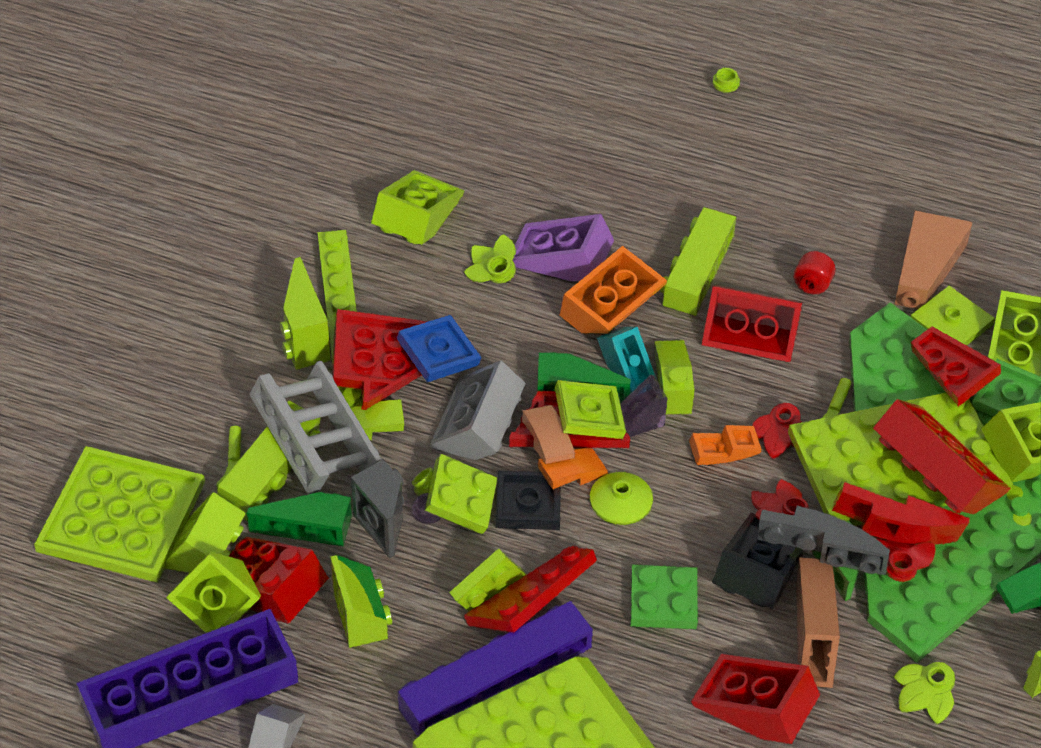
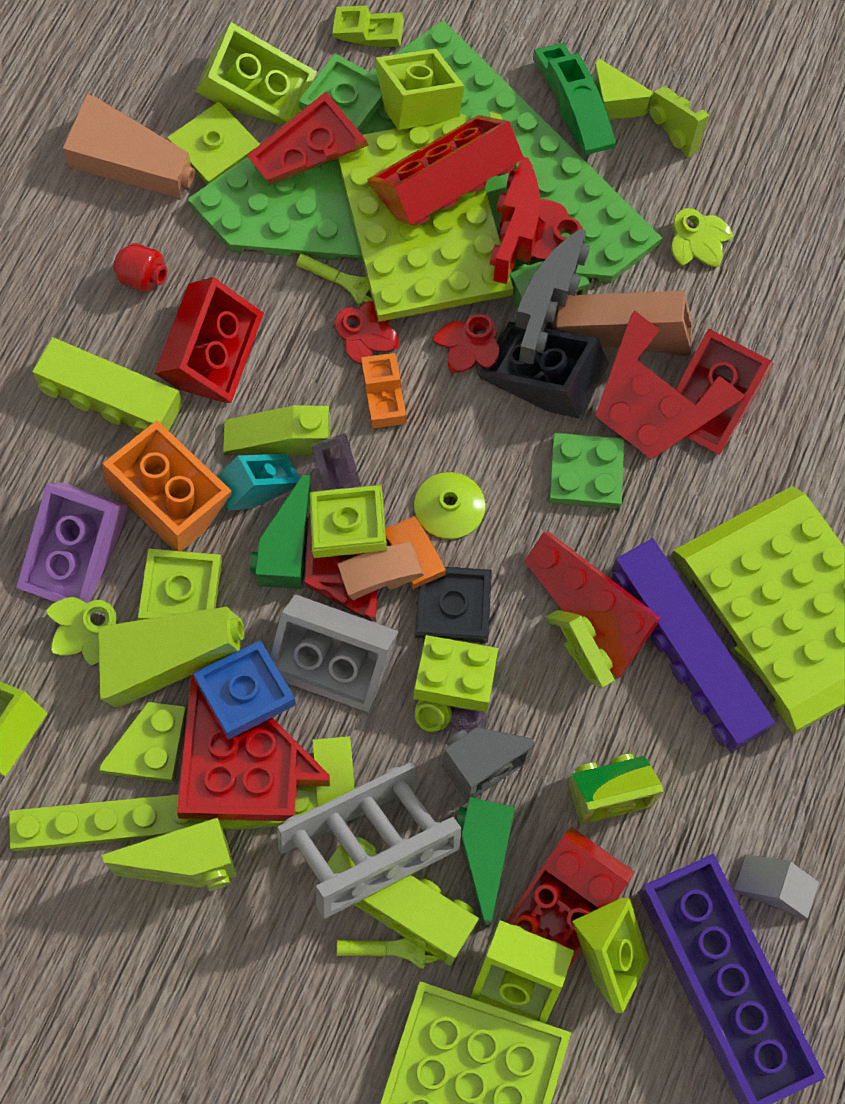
camera: 90 degrees left, 20 degrees up
(398, 302) = (149, 745): none -> lime wing
(470, 298) = (162, 650): none -> lime slope
(529, 317) = (179, 583): none -> lime plate
(729, 627) = (645, 406): none -> red wing

